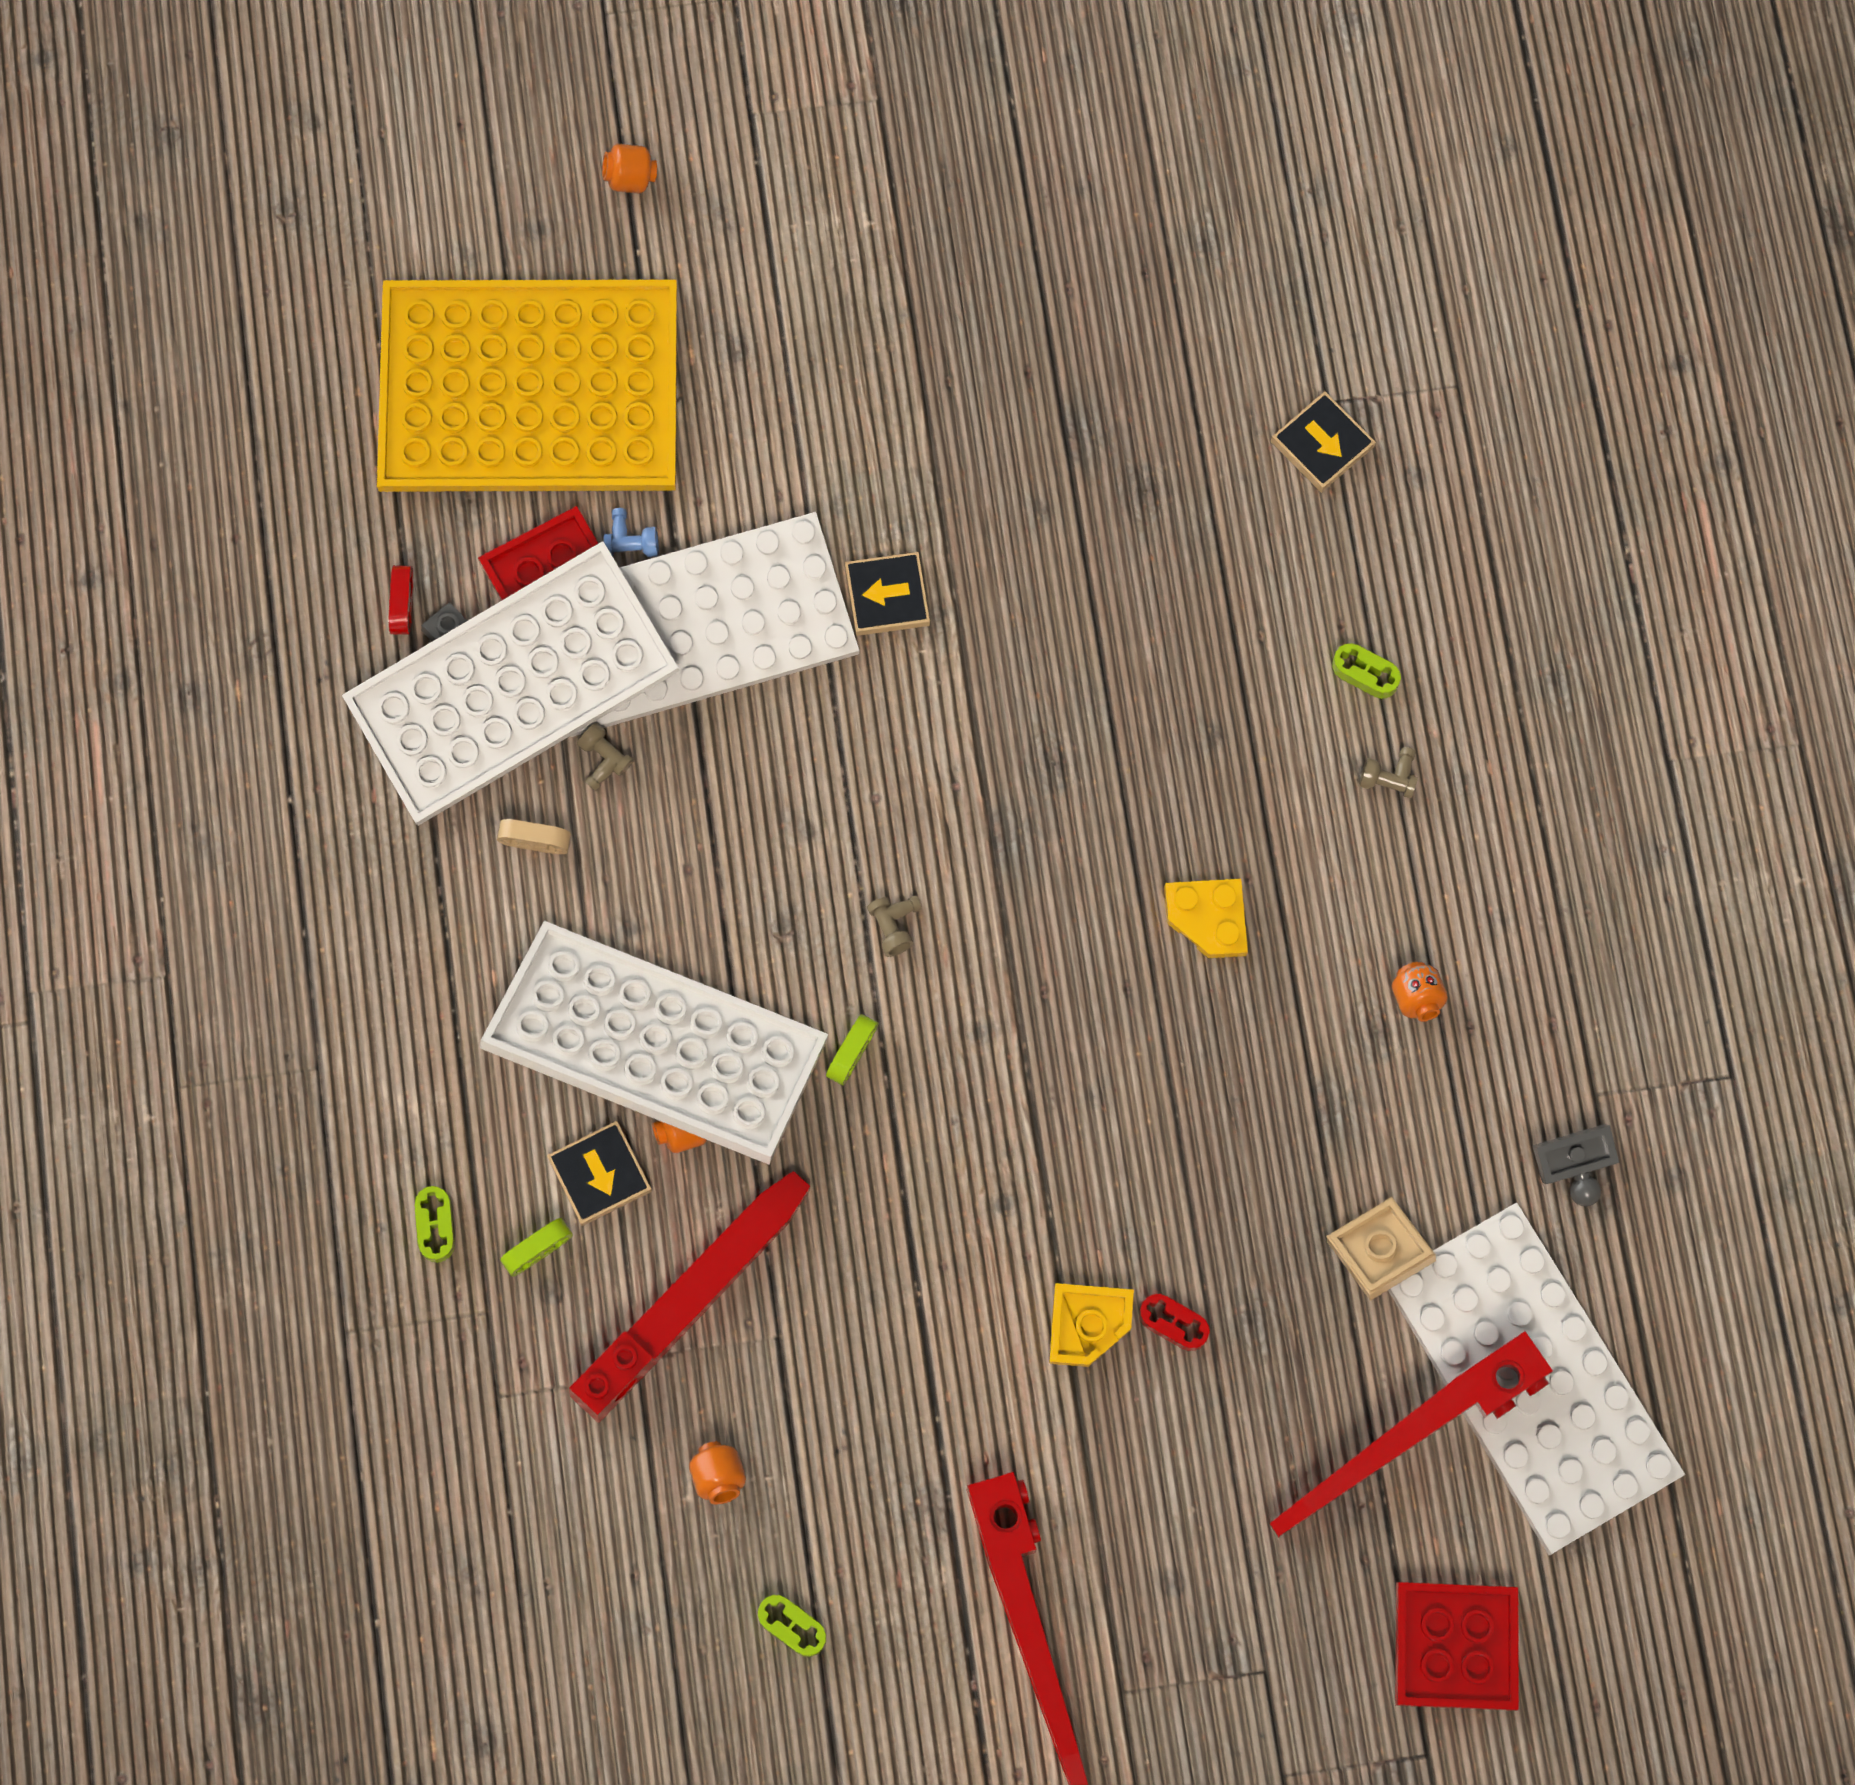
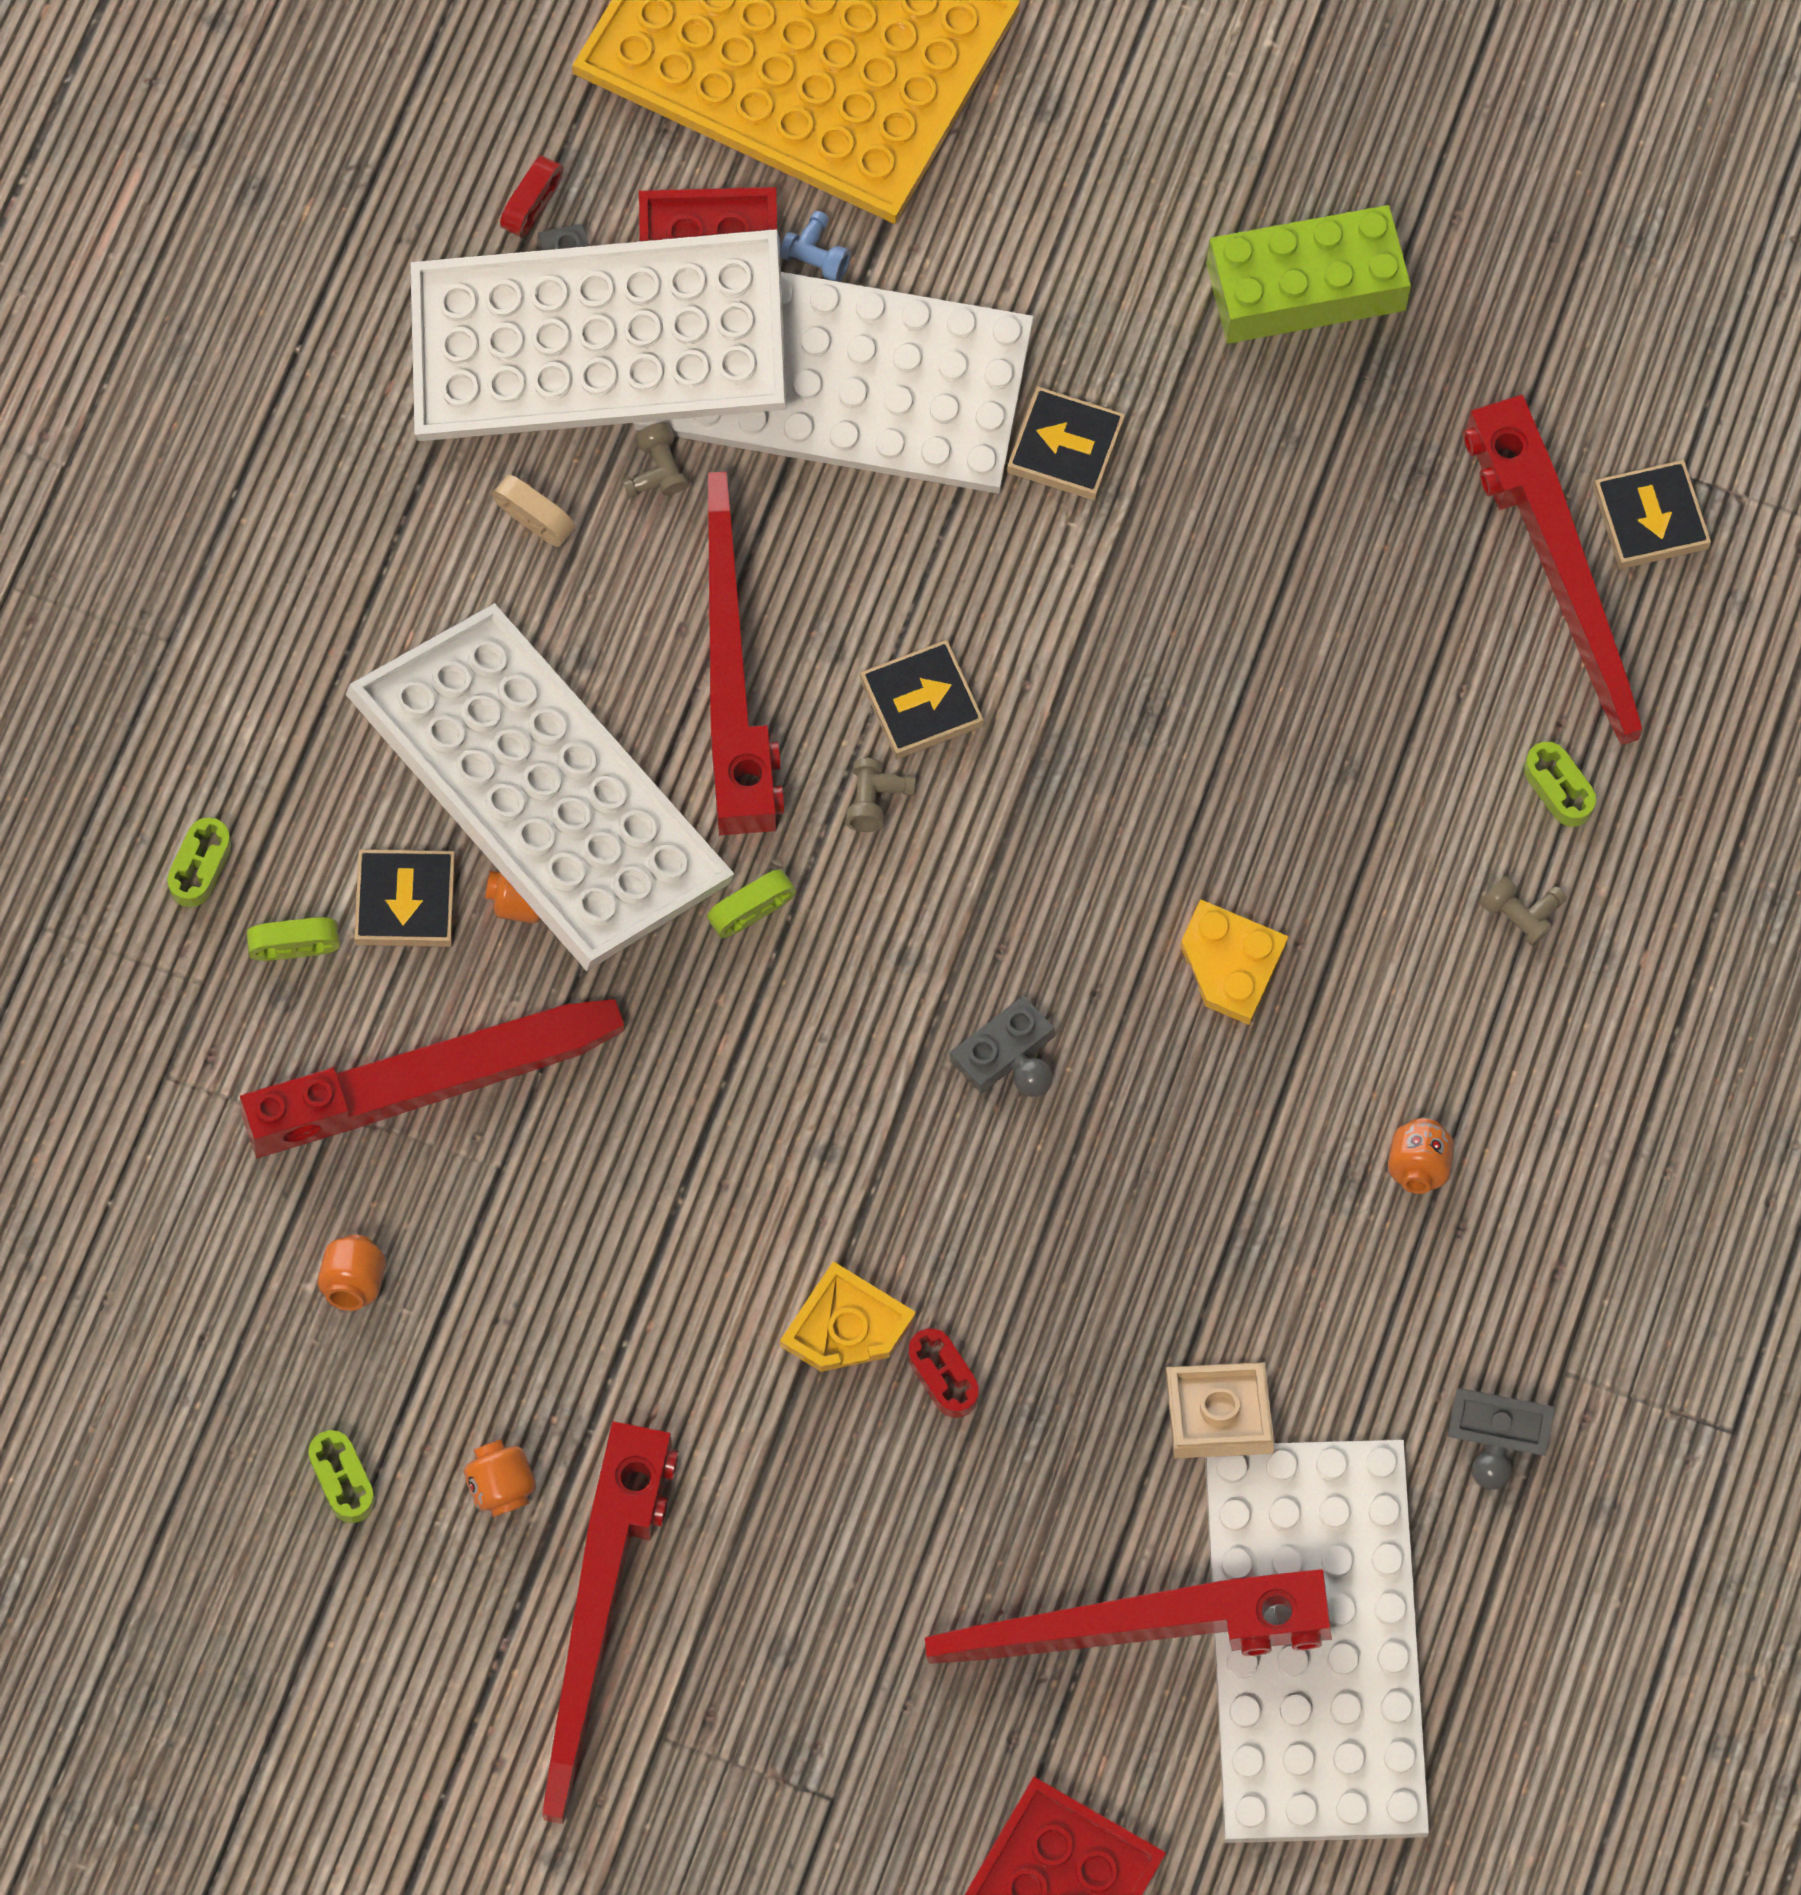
camera: 30 degrees right, 5 degrees down
(773, 938) = (734, 744): none -> red piece
(888, 835) = (921, 699): none -> black tile
(907, 1568) = (499, 1478): none -> orange head
(992, 384) = (1308, 274): none -> lime piece
(1088, 1060) = (1004, 1047): none -> dark grey plate
(1244, 471) = (1536, 491): none -> red piece

